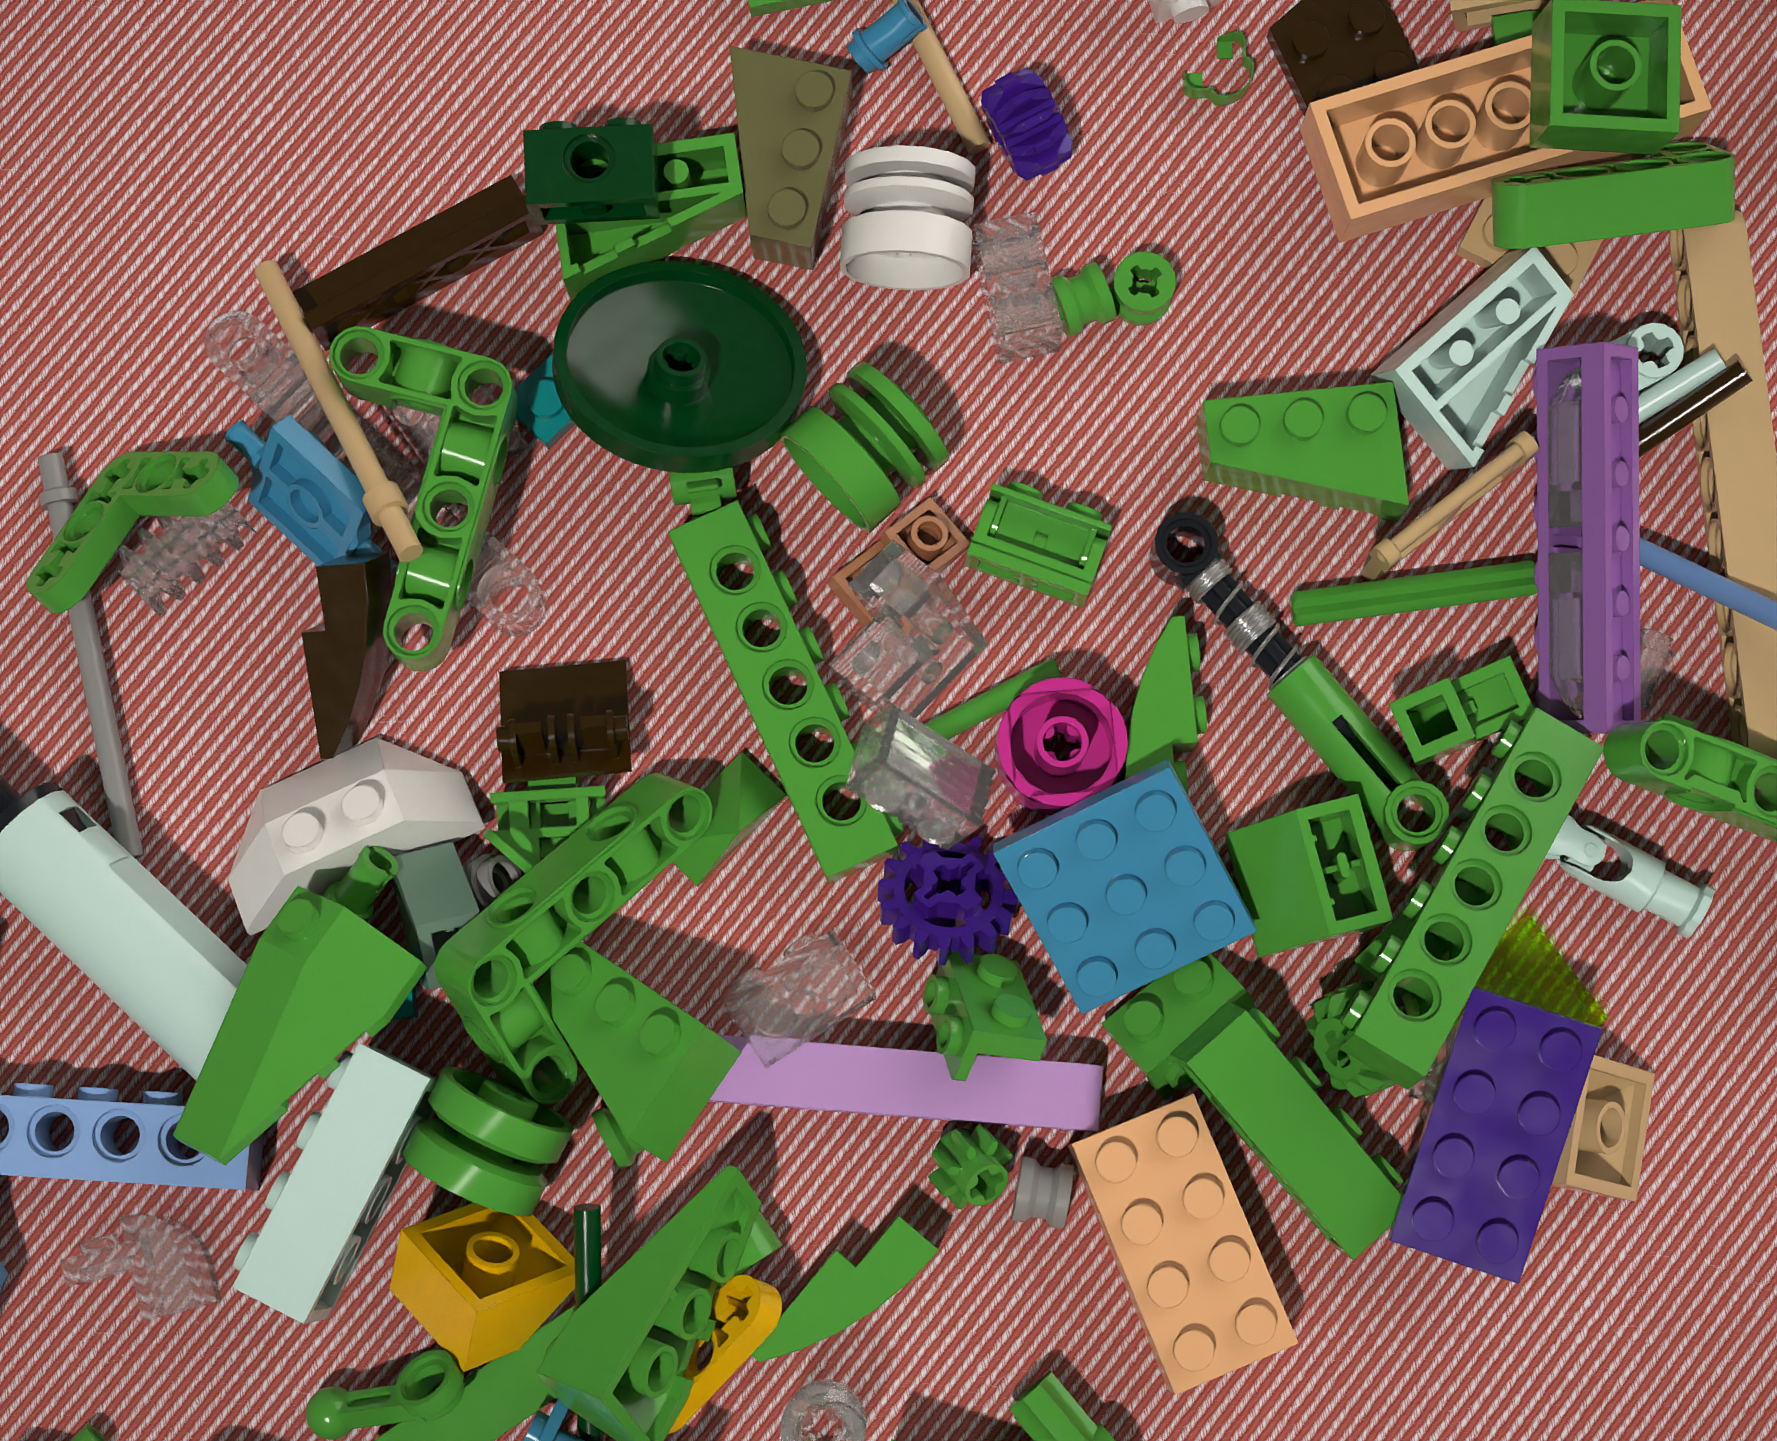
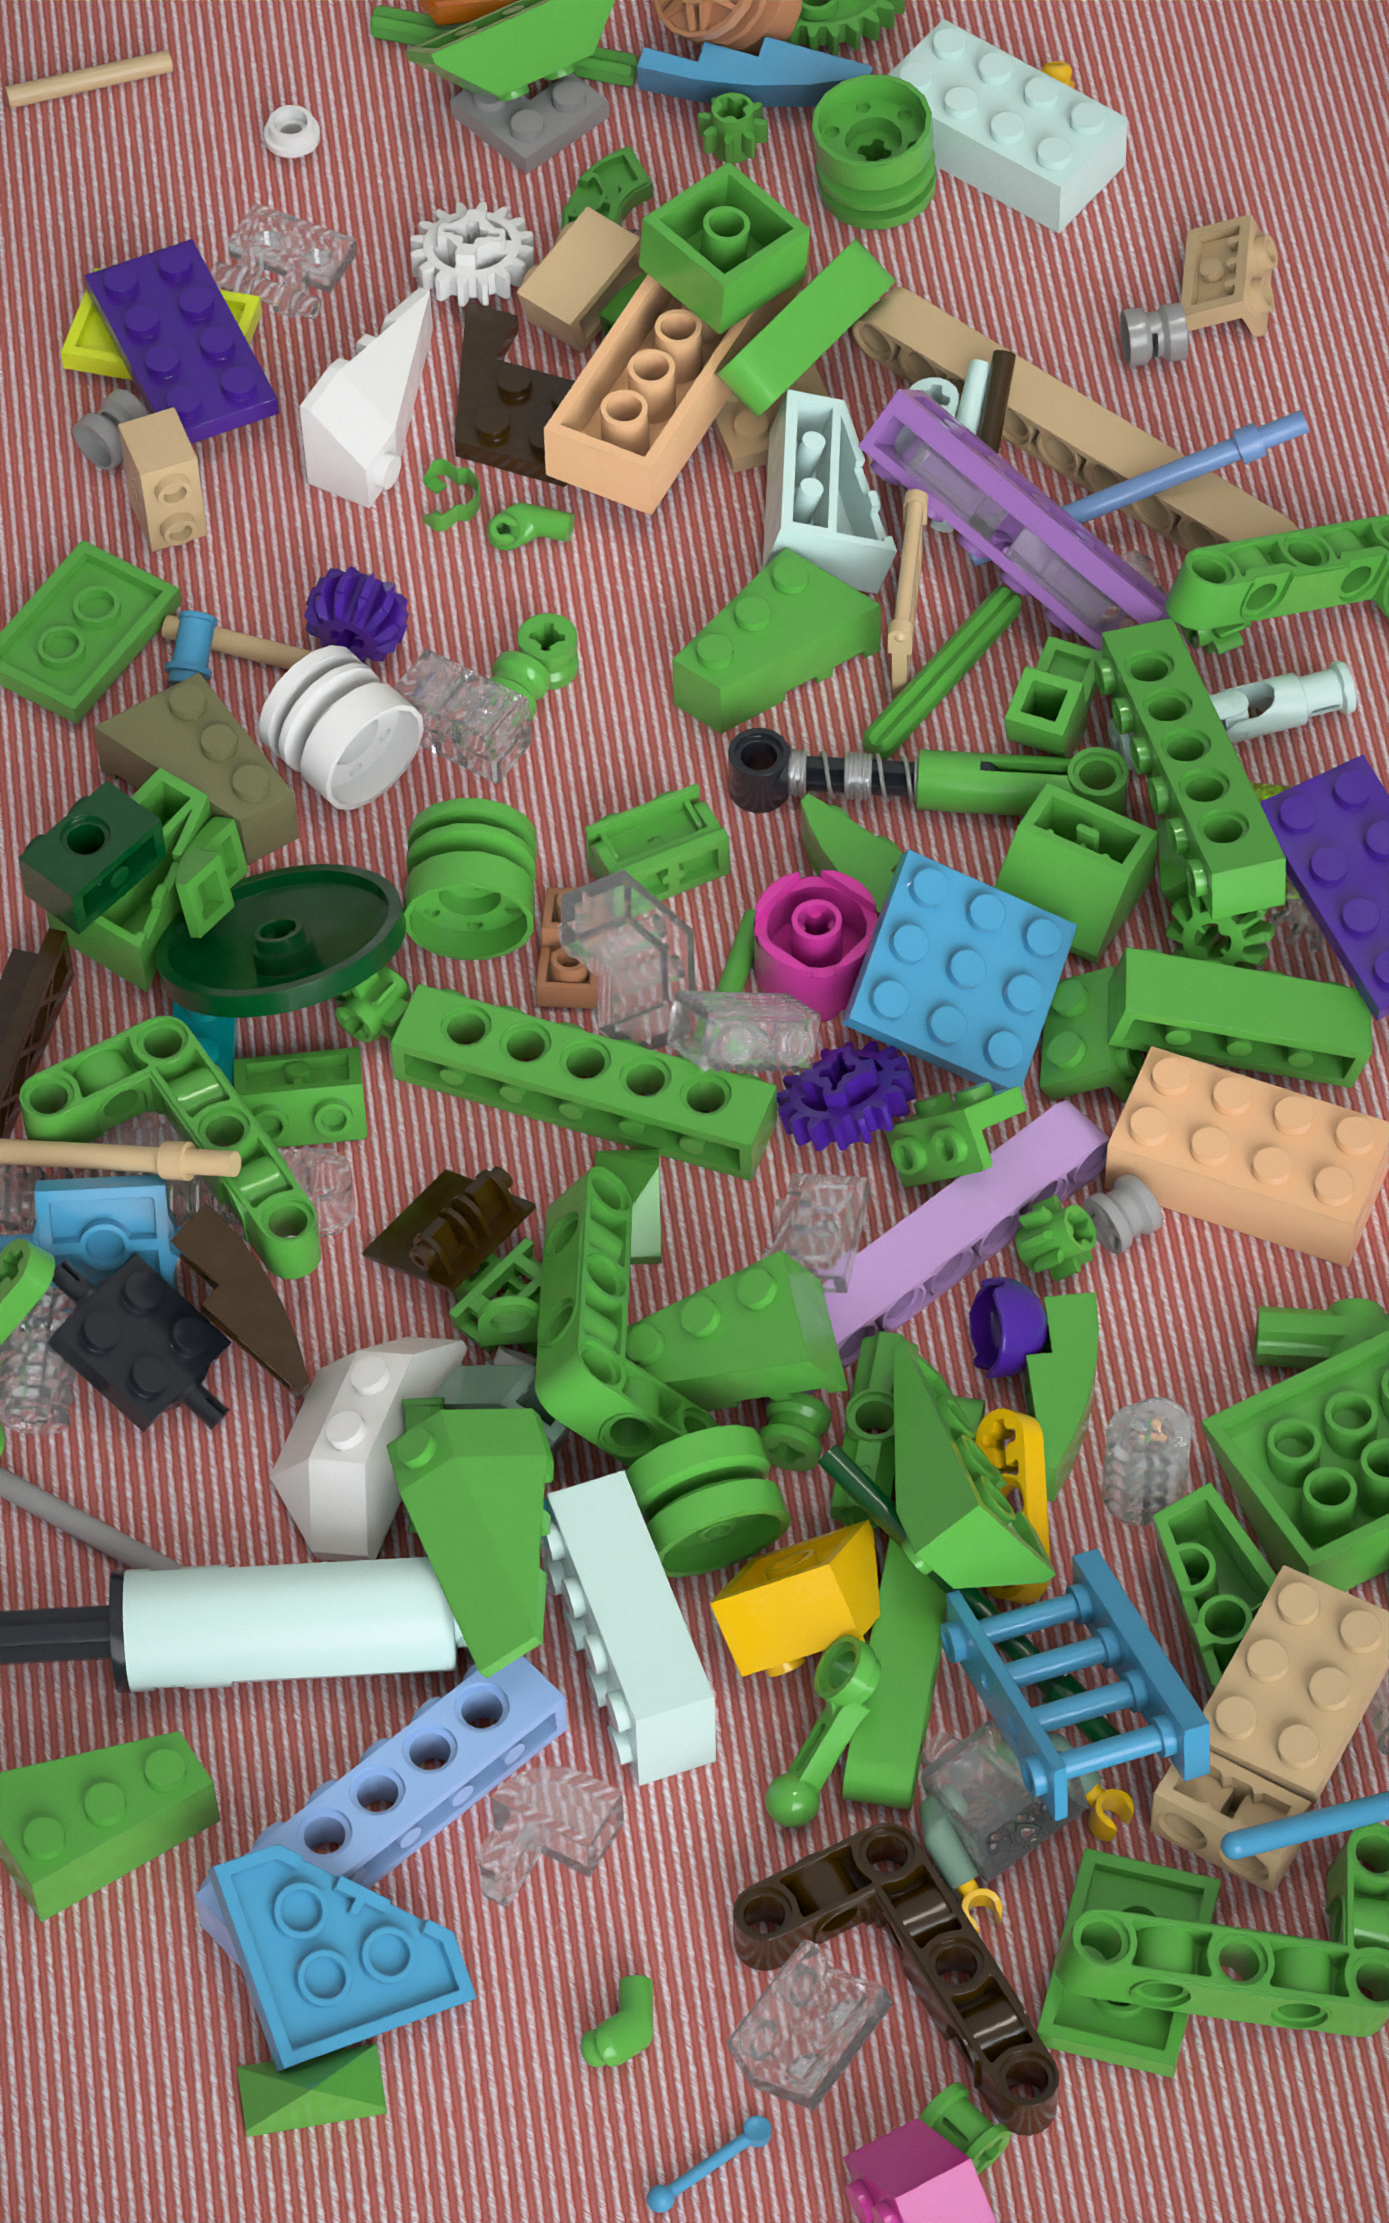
camera: 45 degrees left, 25 degrees down
(253, 603) = (139, 1343): none -> black plate
(580, 500) = (305, 1096): none -> bright green bracket
(645, 1208) = (870, 1408): none -> bright green piece
(702, 246) = (207, 874): none -> bright green slope
(856, 1207) = (1006, 1326): none -> dark purple hair
(1247, 153) = (525, 523): none -> bright green arm

